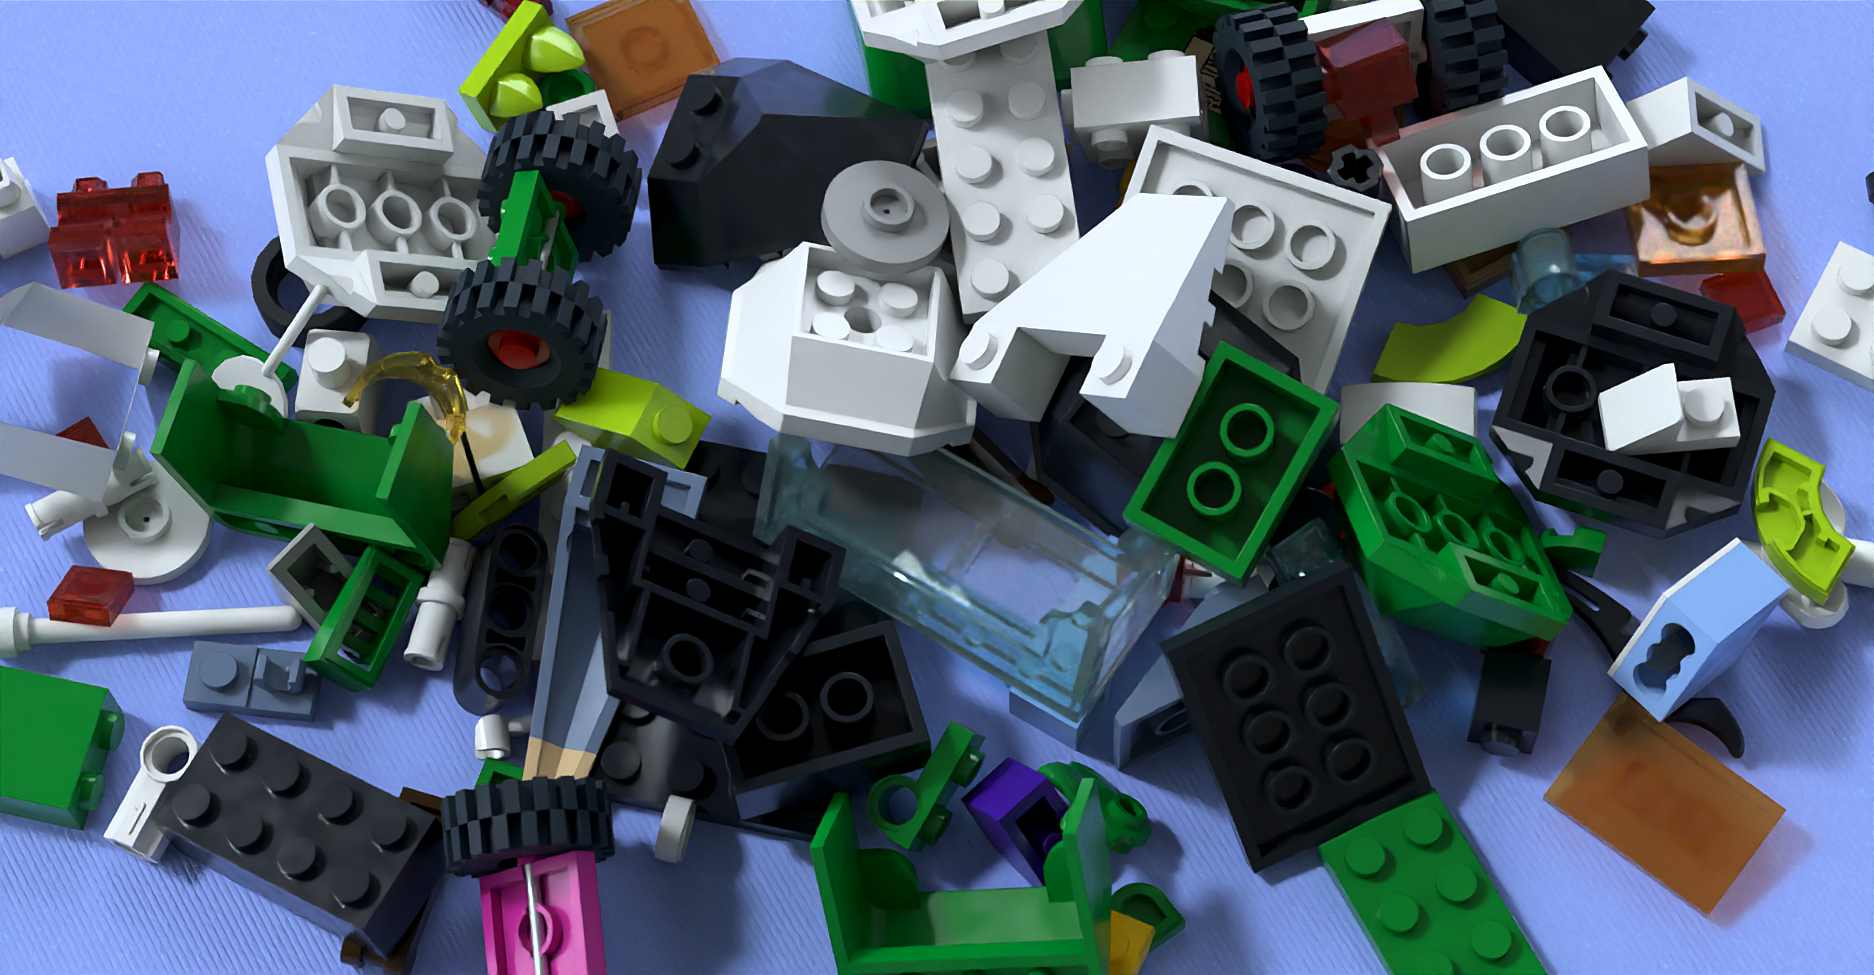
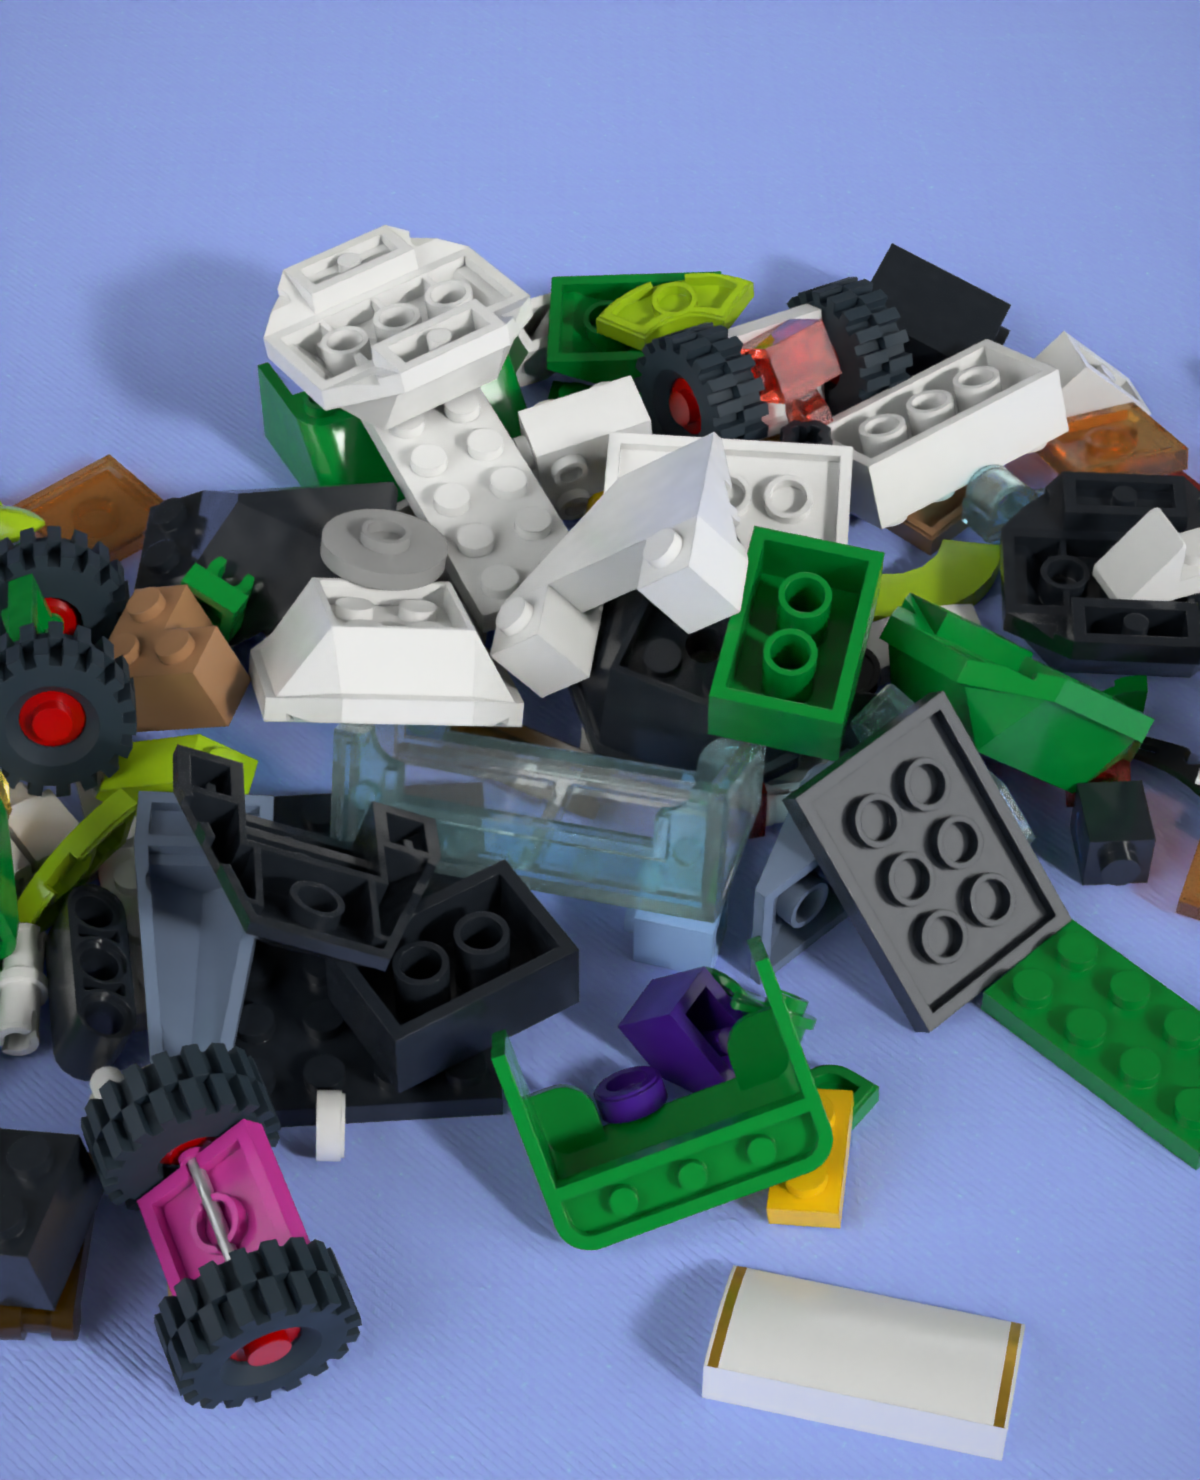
camera: 20 degrees left, 20 degrees down
(651, 287) = (177, 661): none -> medium nougat brick
(712, 224) = (220, 601): none -> green tile
(950, 765) = (600, 991): green plate -> none
(953, 869) = (630, 1094): none -> dark purple tile

